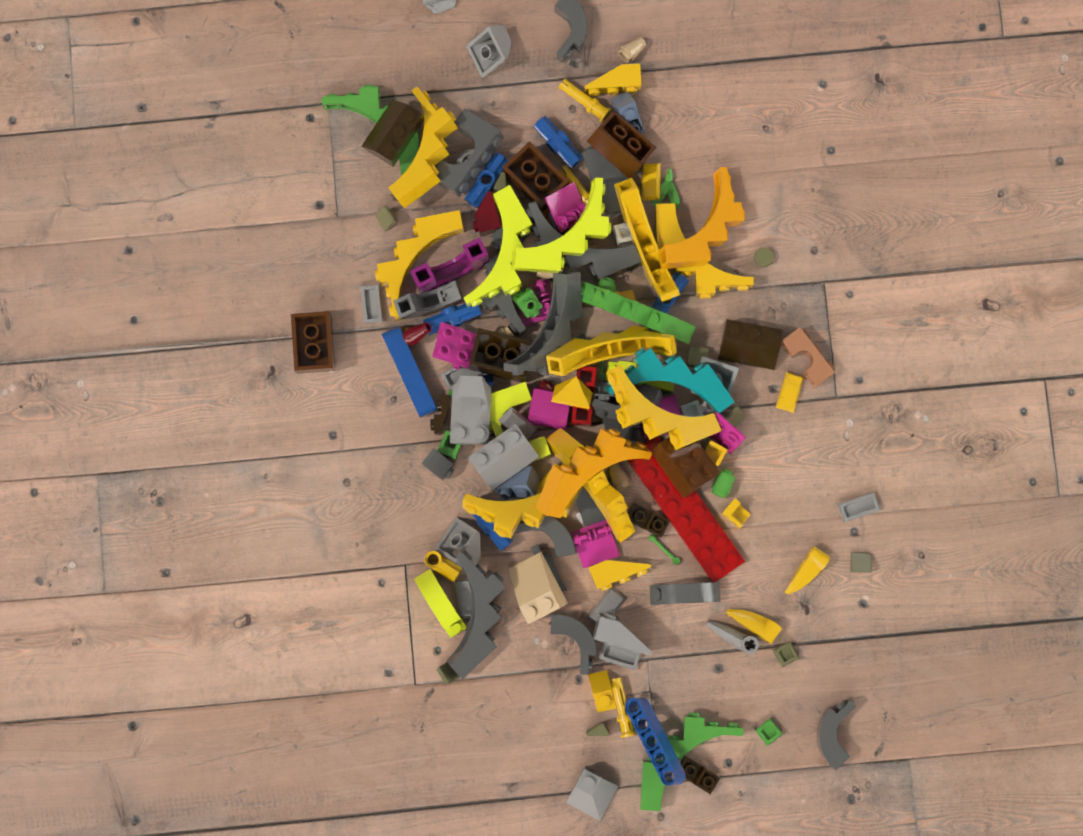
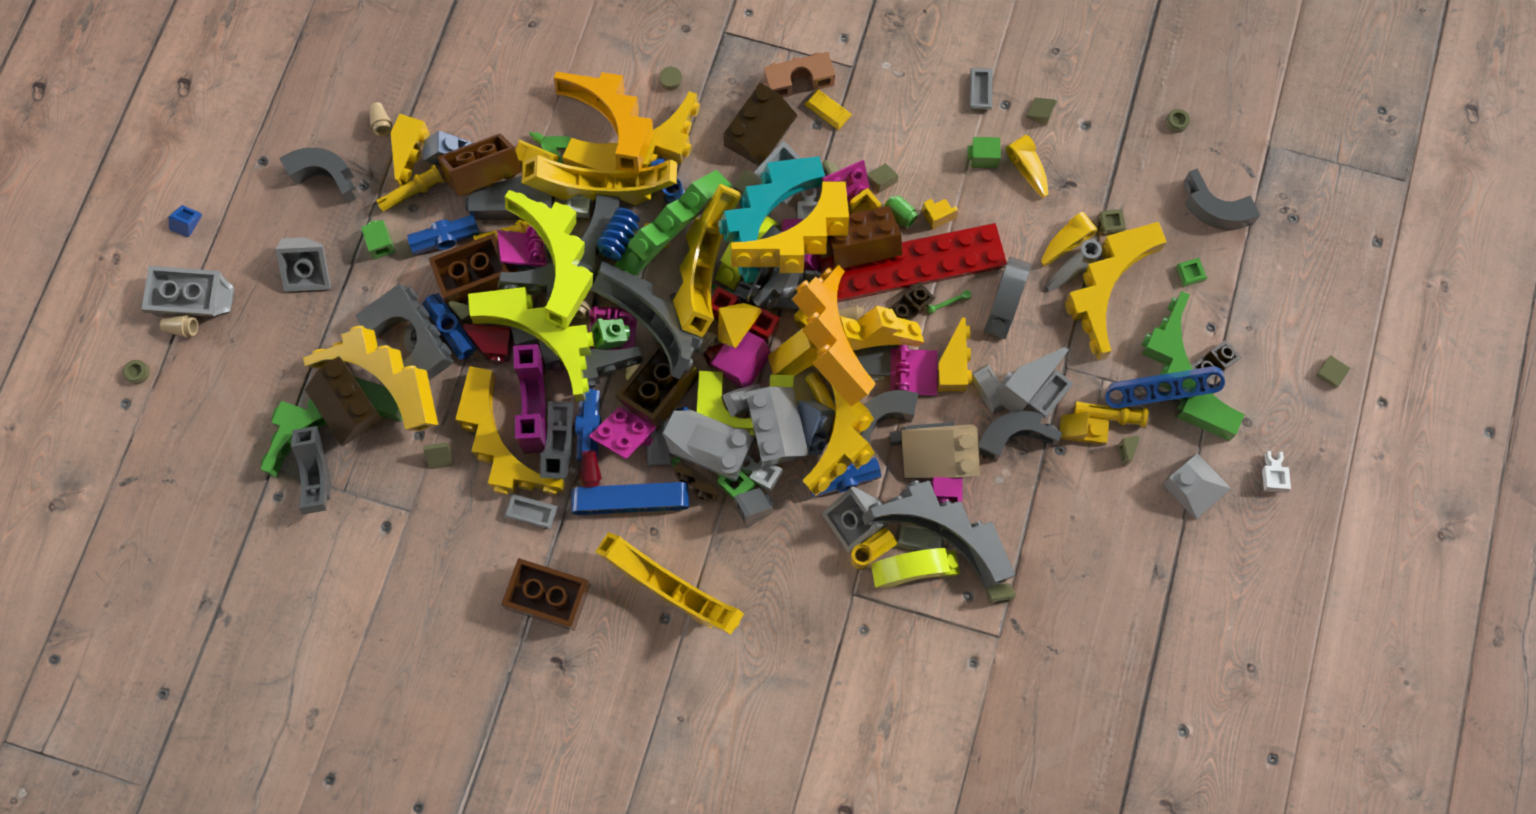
camera: 70 degrees left, 10 degrees down
(336, 135) = (313, 469): none -> dark grey arch
(353, 427) = (668, 586): none -> yellow arch
(464, 464) = (763, 476): none -> white plate
(508, 603) = (947, 489): none -> dark pink brick
(534, 95) = (378, 239): none -> bright green brick
(606, 274) = (618, 233): none -> blue piece
(706, 661) = (1091, 302): none -> yellow arch
(748, 457) = (883, 177): none -> olive slope
(801, 530) = (984, 152): none -> bright green brick
(898, 677) = (1178, 120): none -> olive tile

